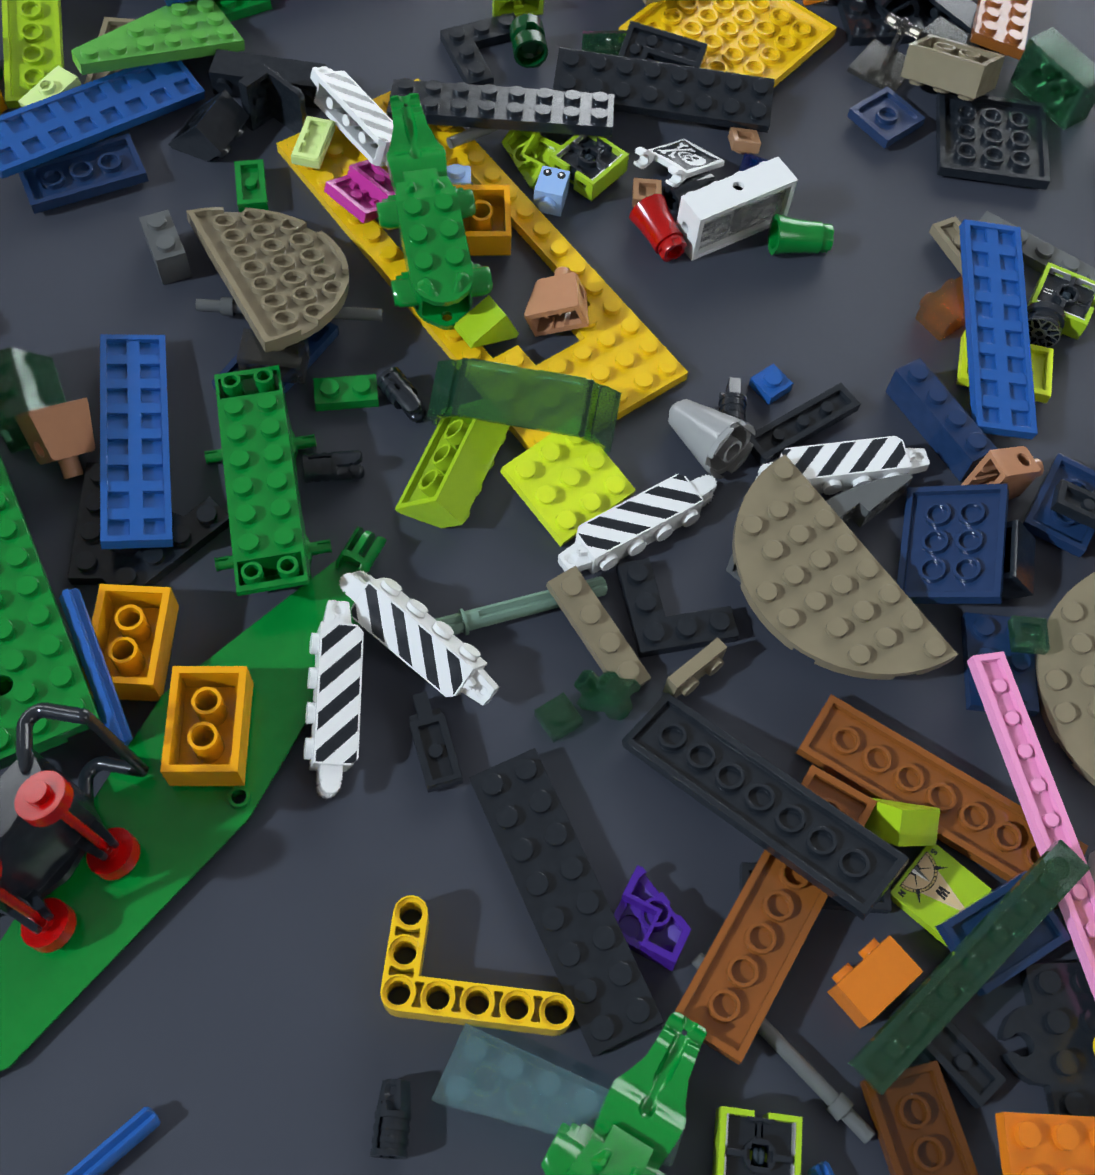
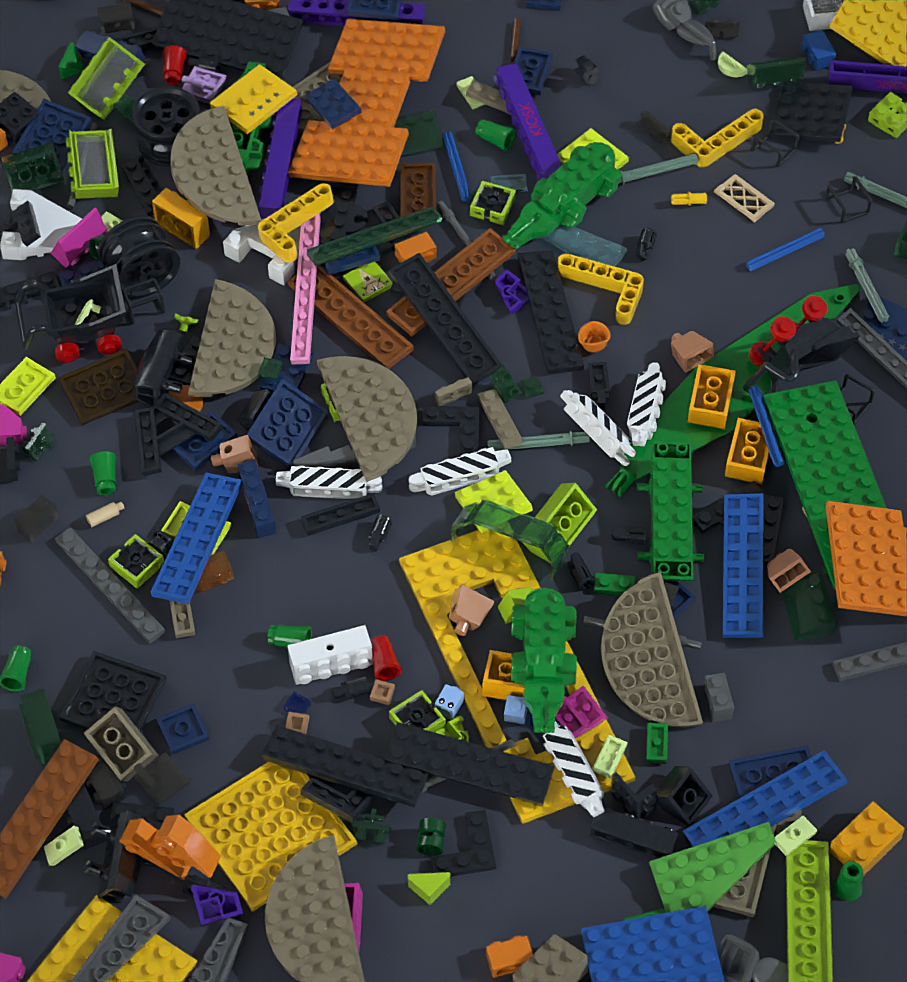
camera: 160 degrees left, 5 degrees down
(263, 846) = (691, 350): none -> nougat torso
(460, 831) = (594, 336): none -> orange helmet
(680, 158) = (348, 711): flag -> none
(712, 436) = (402, 508): light grey cone -> none
(771, 384) = (348, 546): blue plate -> none
(904, 823) = (376, 302): lime slope -> none

